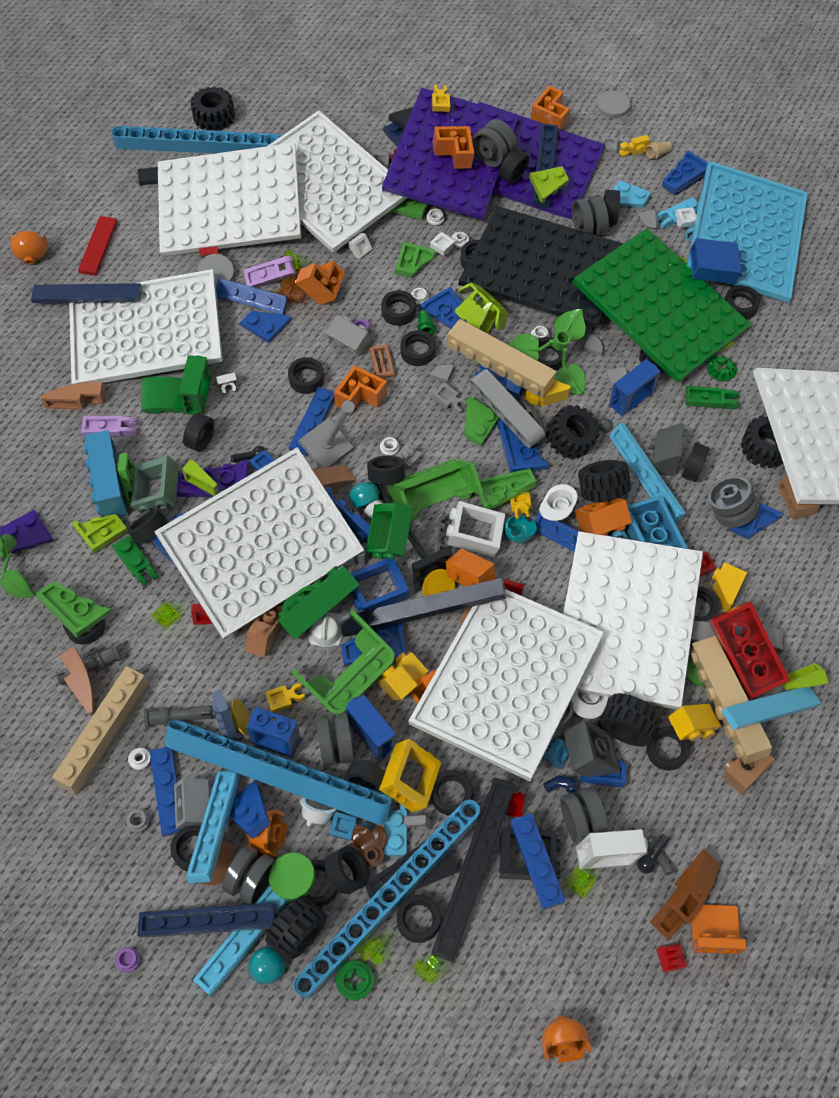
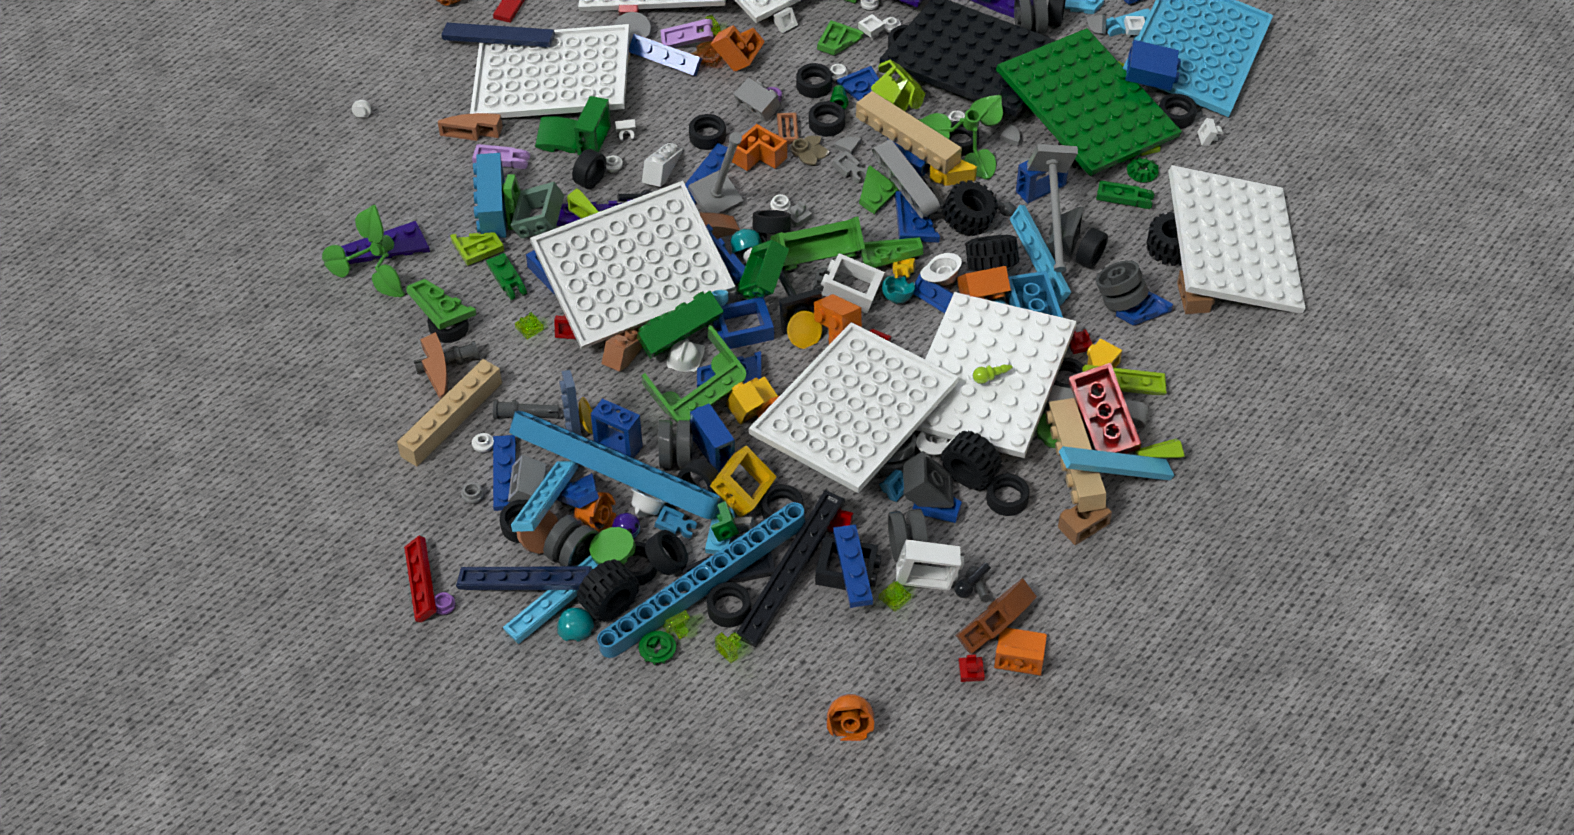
camera: 10 degrees right, 10 degrees down
(99, 935) = (420, 579): none -> red tile
(145, 527) = (520, 245): black tyre -> none
(220, 425) = (614, 163): none -> white plate
(265, 324) = (674, 83): blue wing -> none
(267, 417) = (660, 164): none -> white slope
(281, 698) = (636, 406): yellow plate -> none
(300, 840) = (629, 522): none -> dark purple piece
(352, 564) = (721, 296): none -> medium azure hinge
(368, 841) = (692, 535): reddish brown plate -> none
(402, 826) = (726, 526): none -> green bracket
(408, 384) = (809, 149): none -> dark tan plate
(426, 606) = (790, 339): tile -> none
(566, 782) = (883, 511): dark blue arm -> none
(626, 626) = (982, 374): none -> lime bar
(650, 378) = (1053, 160): none -> light grey tile
(694, 722) = (1037, 471): yellow brick -> none
(763, 603) = (1138, 381): none -> lime tile
(775, 321) = (1208, 132): none -> white tile

